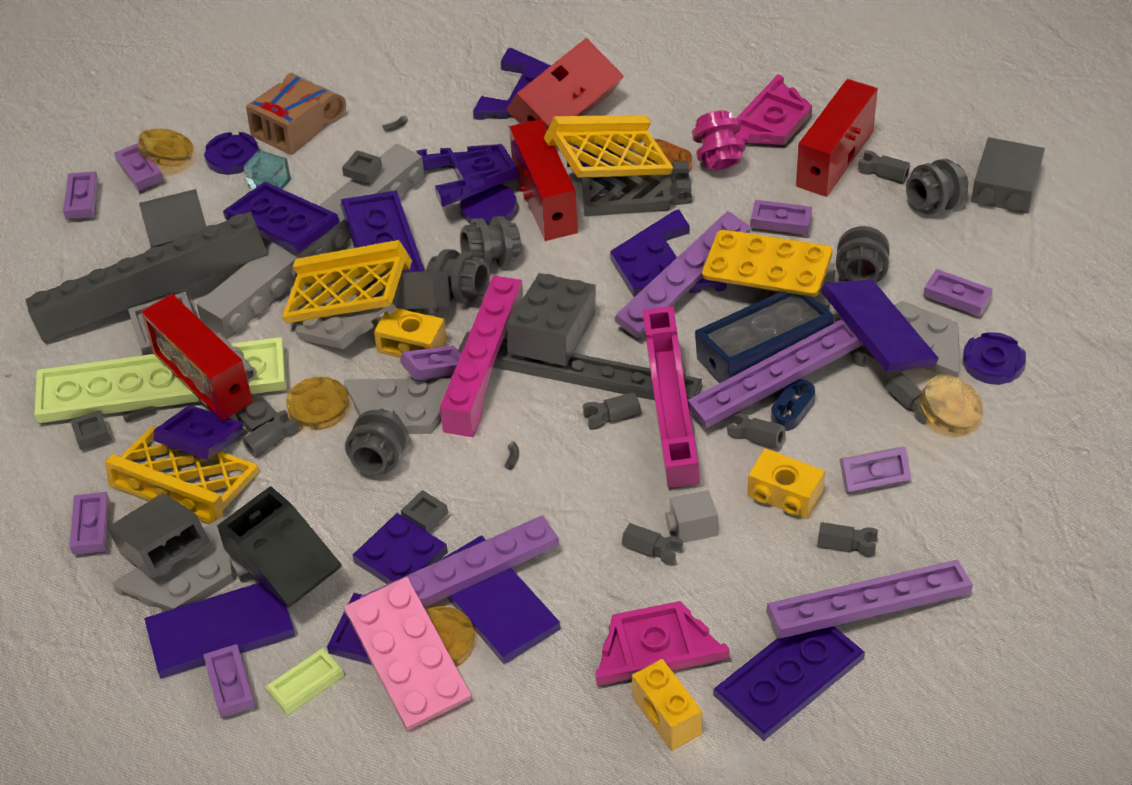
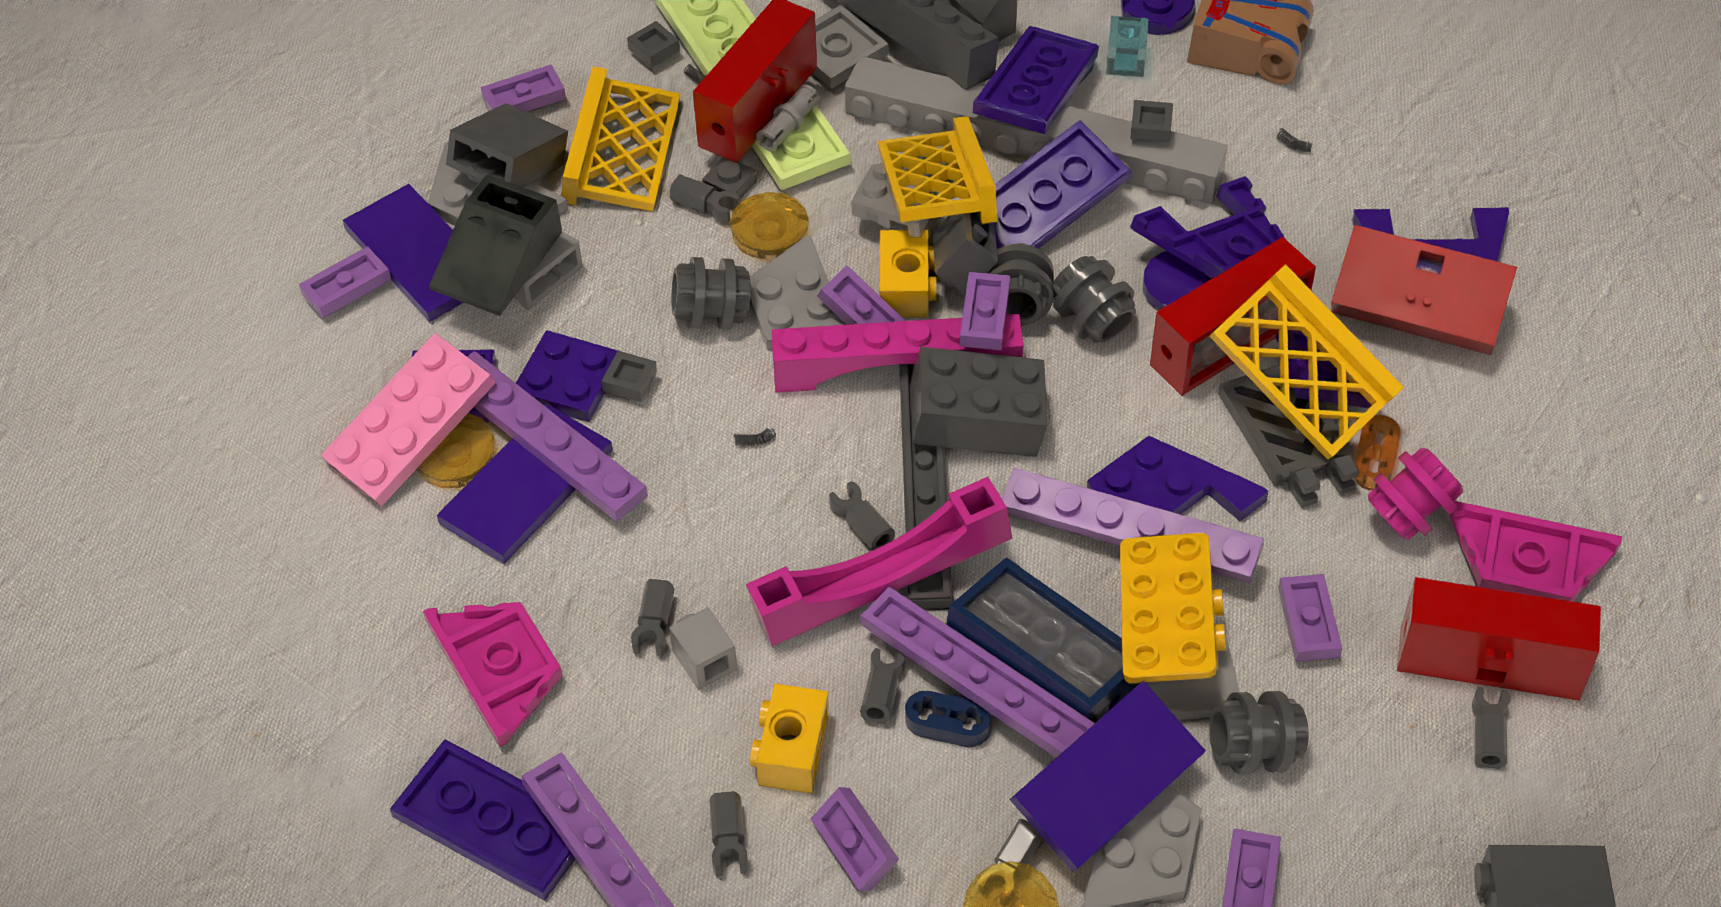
camera: 70 degrees right, 5 degrees up
(197, 432) = (668, 132): dark purple plate -> none
(304, 681) = (366, 349): yellowish green tile -> none
(494, 282) = (985, 311): none -> medium lavender plate
(667, 704) = (400, 691): yellow brick -> none
(937, 186) = (1461, 800): dark grey piece -> none

